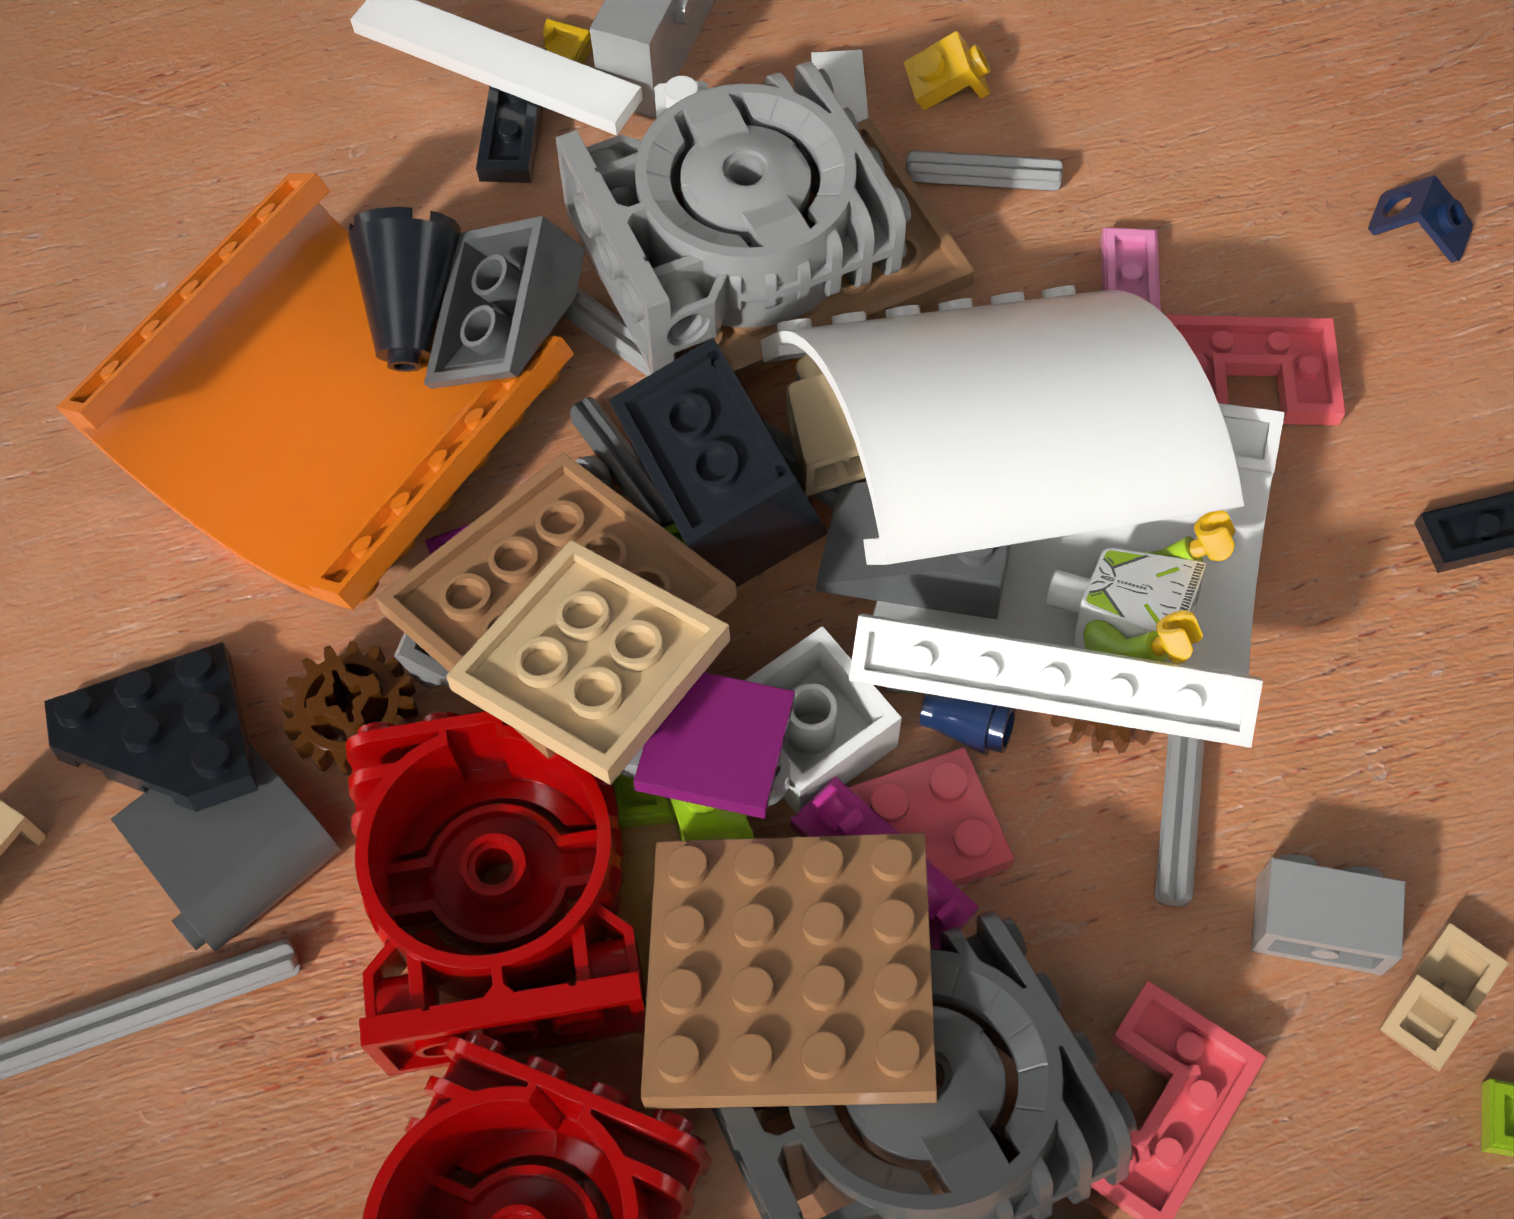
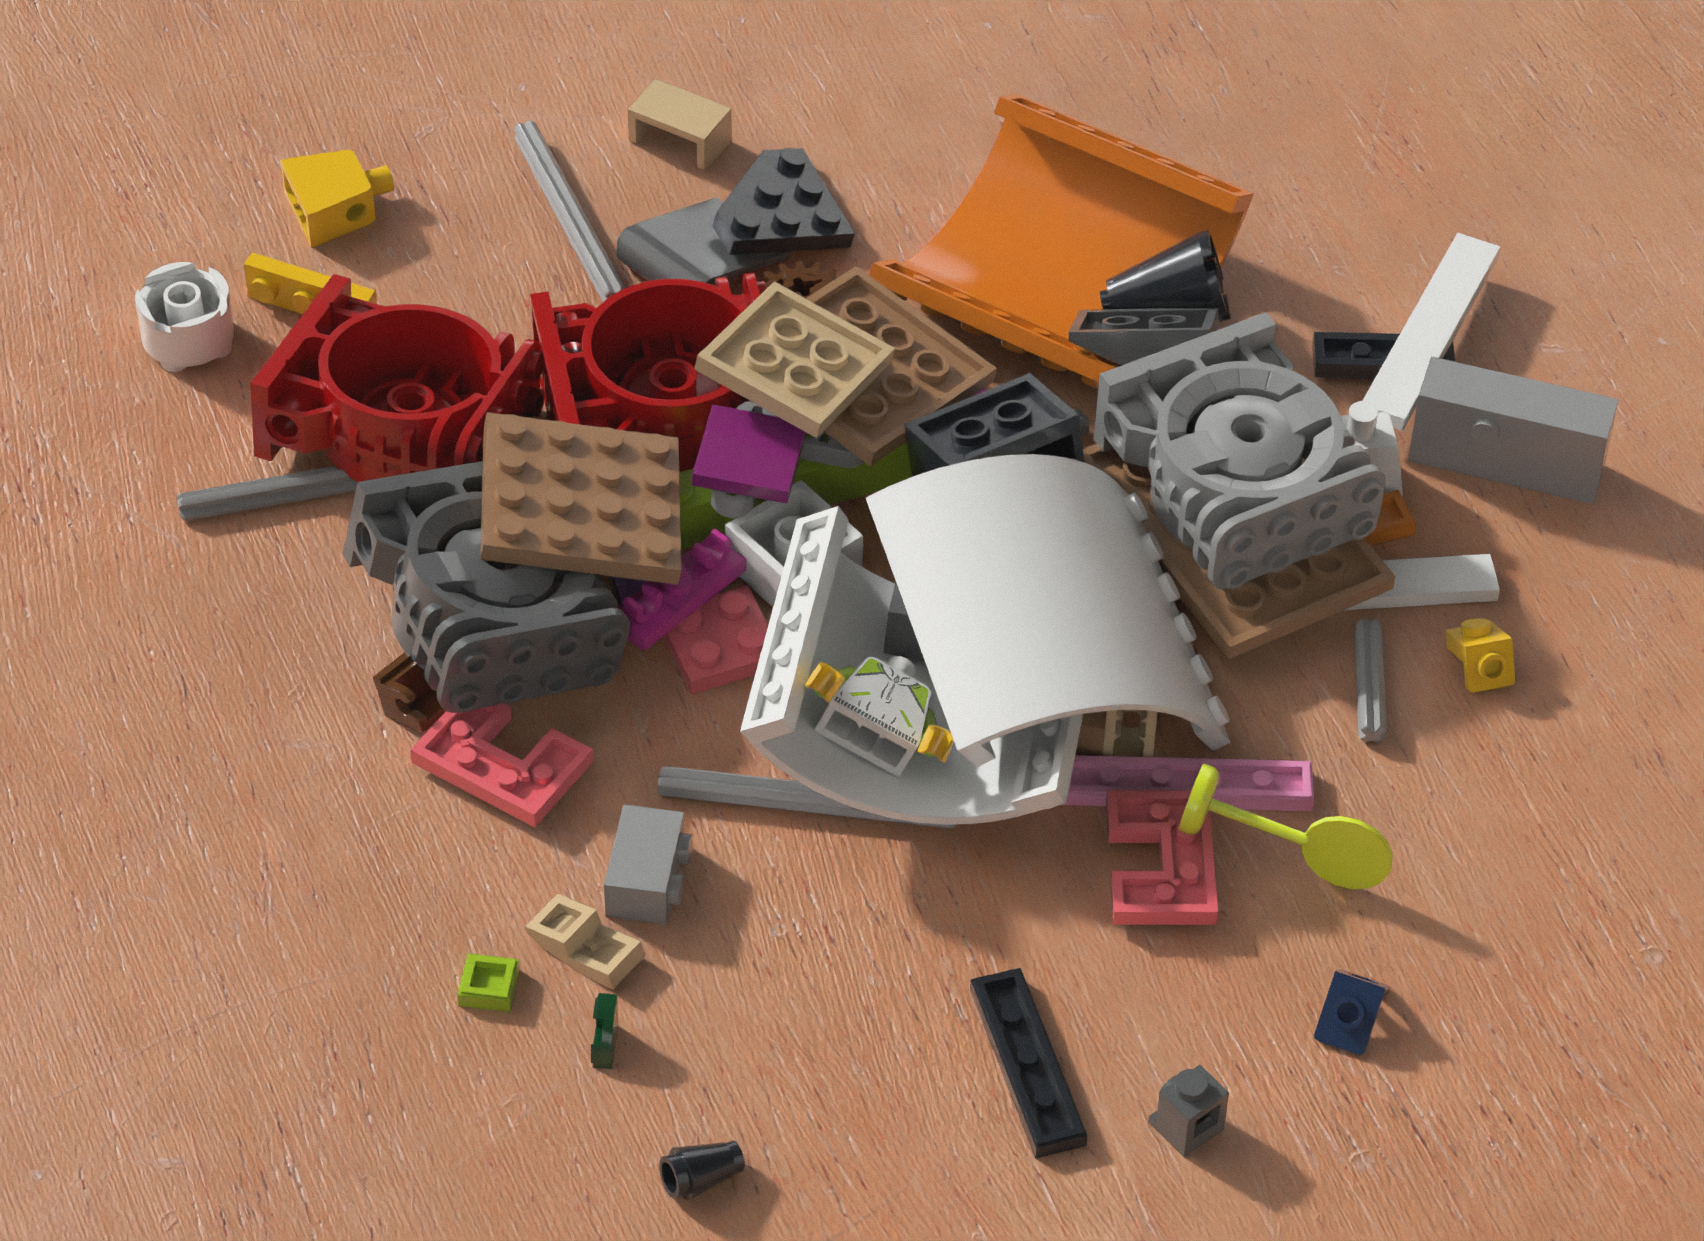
camera: 85 degrees right, 15 degrees down
(1219, 303) = (1335, 847): none -> neon yellow piece

